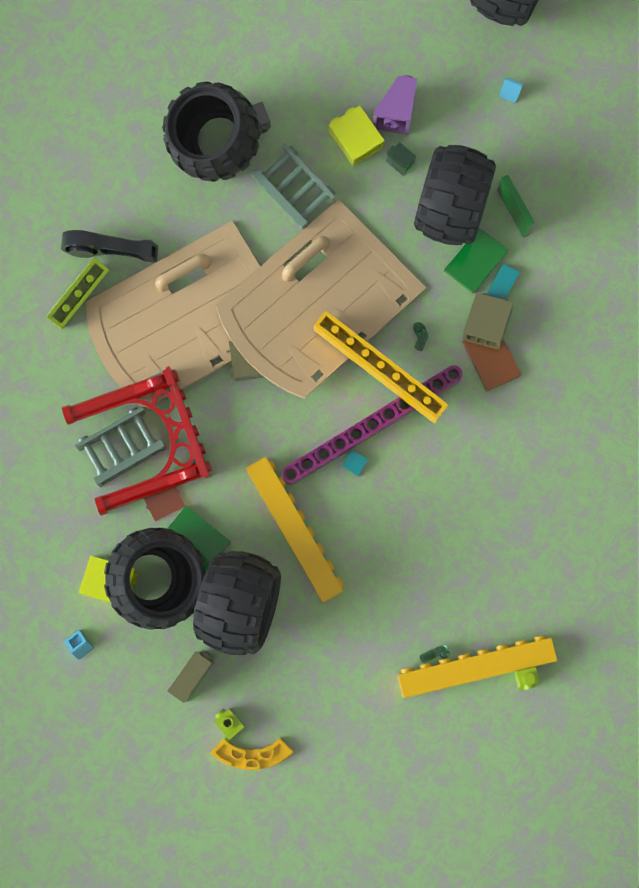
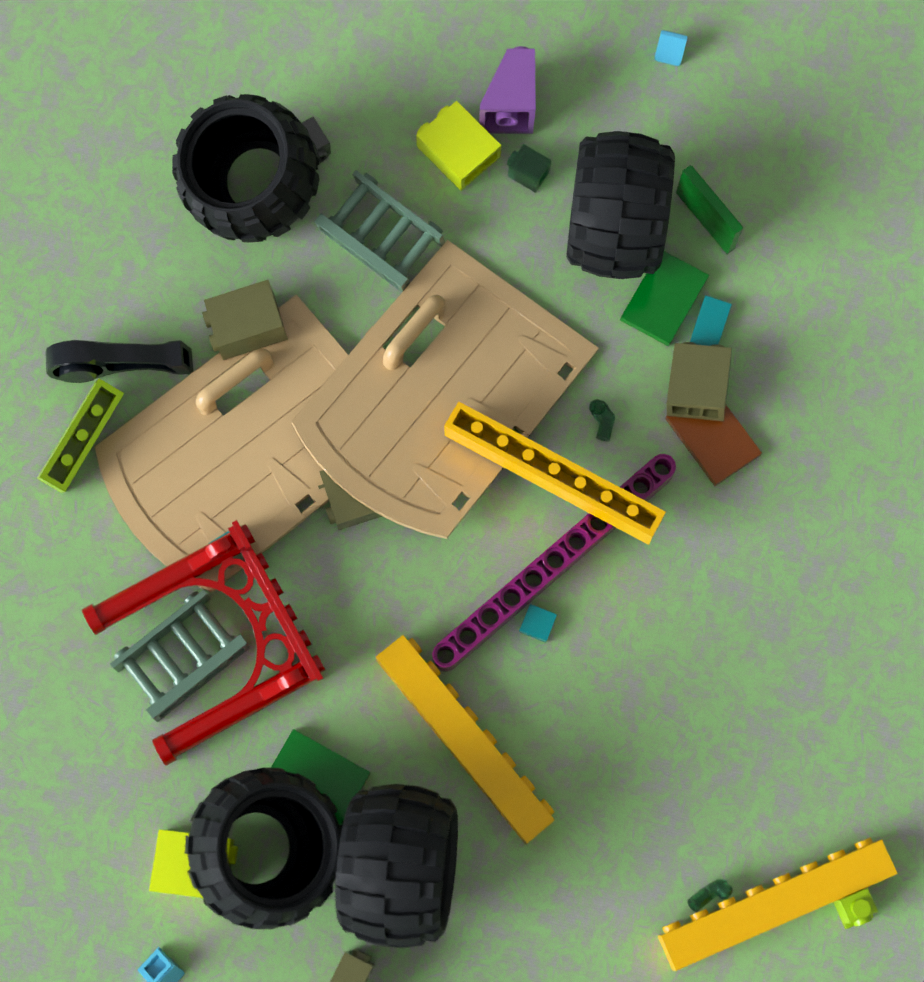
camera: 10 degrees left, 5 degrees down
(164, 503) = (259, 731): clear red piece -> none
(195, 232) = (244, 320): none -> olive brick

